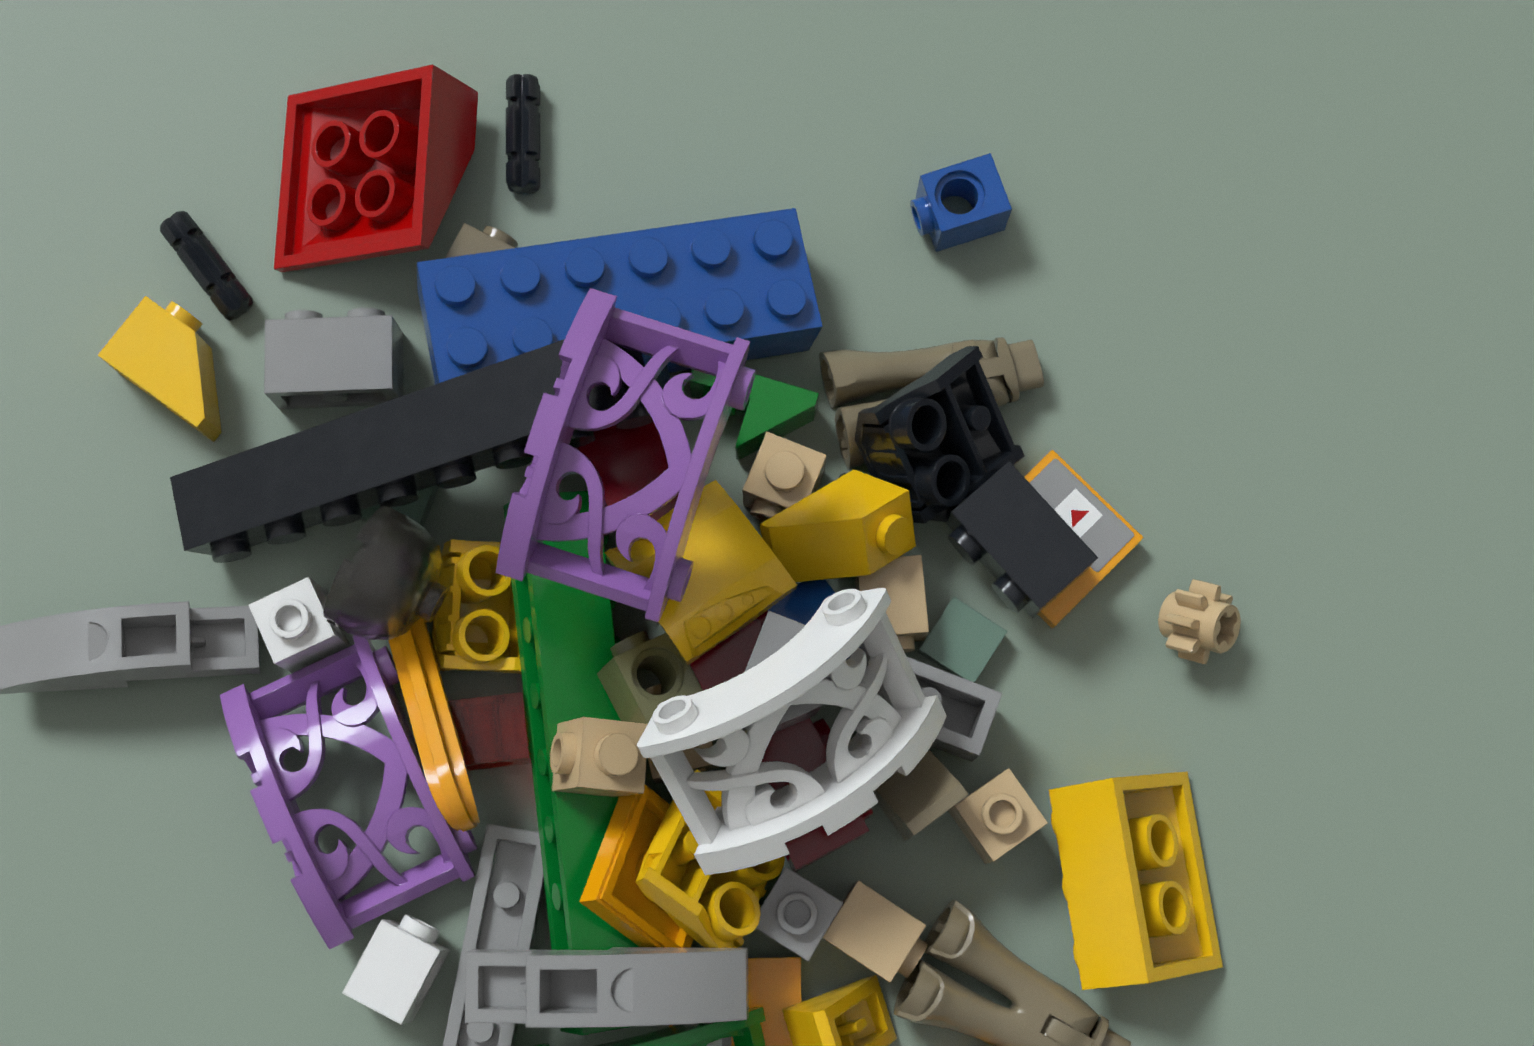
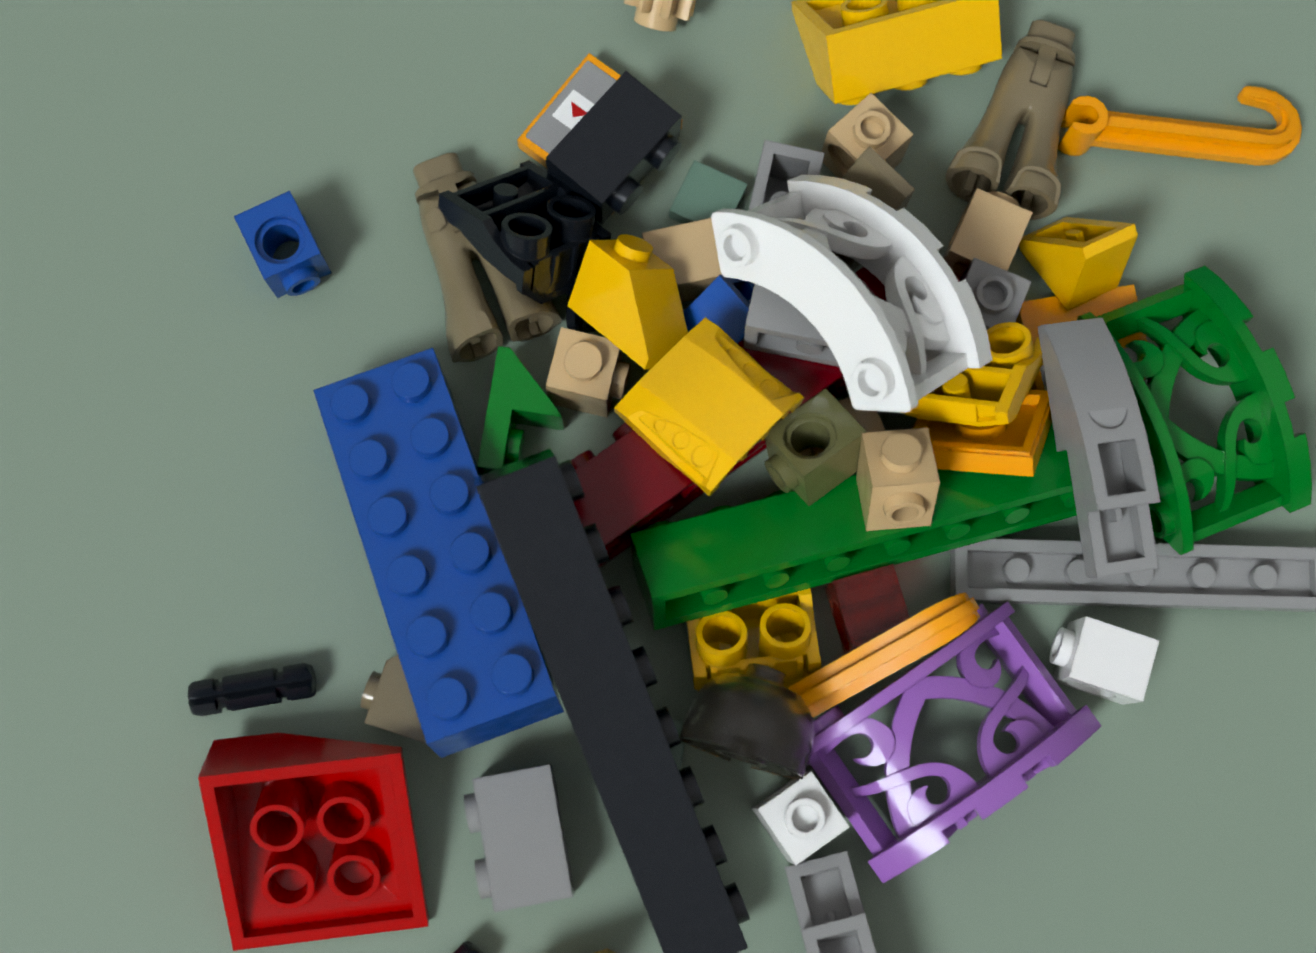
camera: 105 degrees left, 0 degrees up
(593, 360) = (543, 511): medium lavender fence -> none

